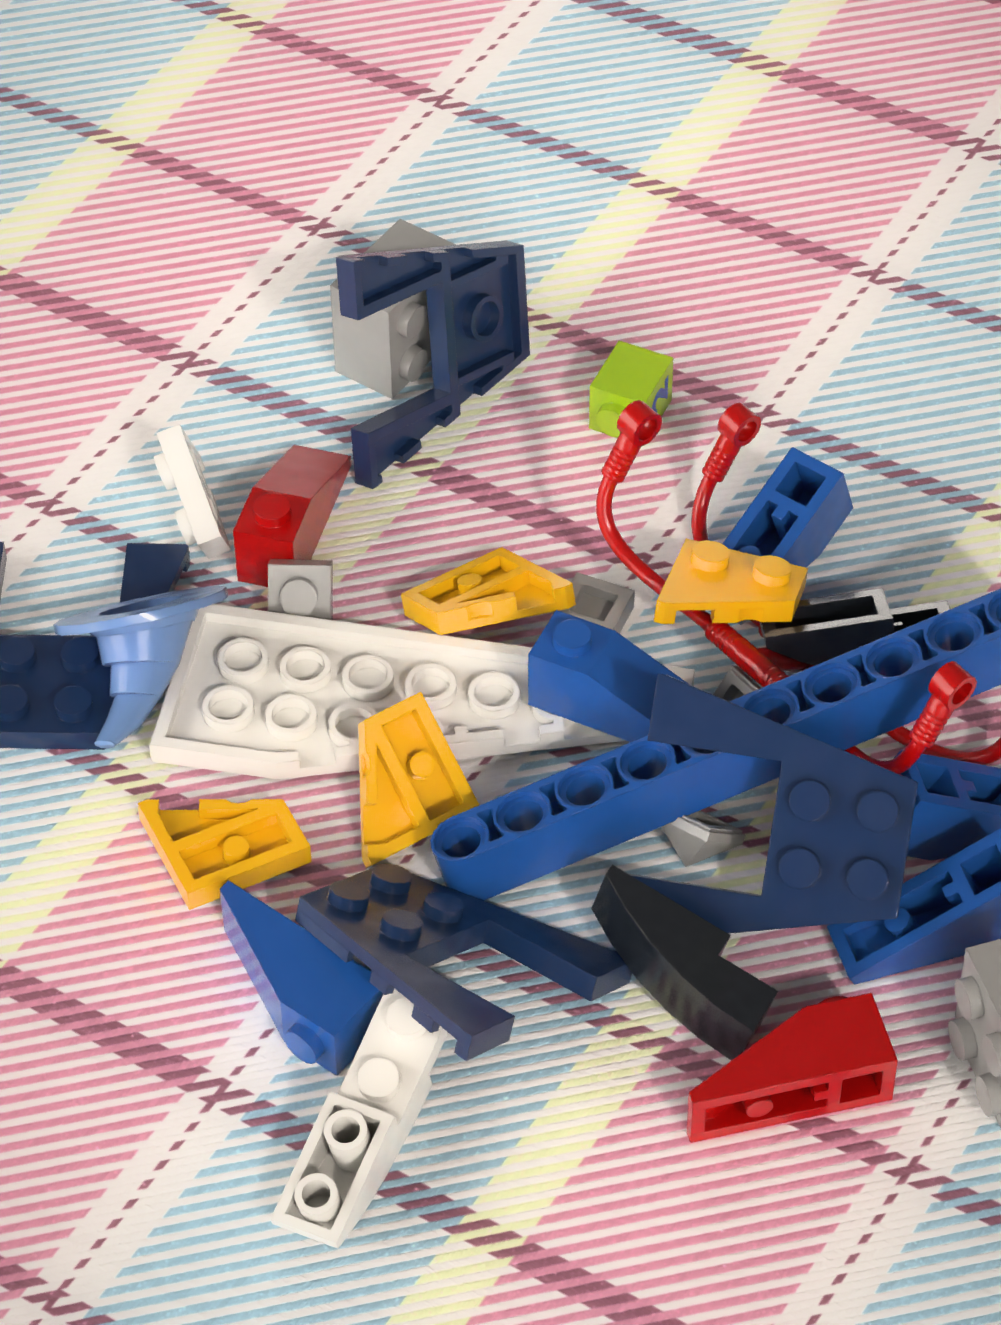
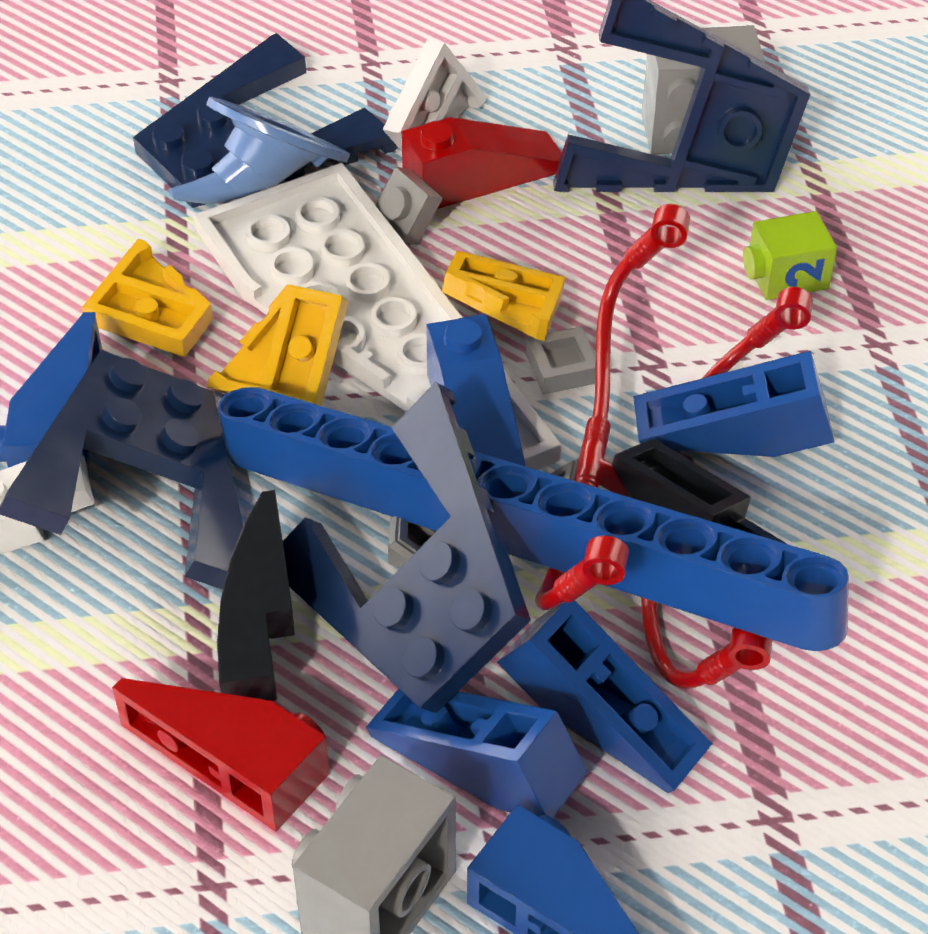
camera: 50 degrees right, 0 degrees up
(730, 585) = (637, 400): yellow wing -> none

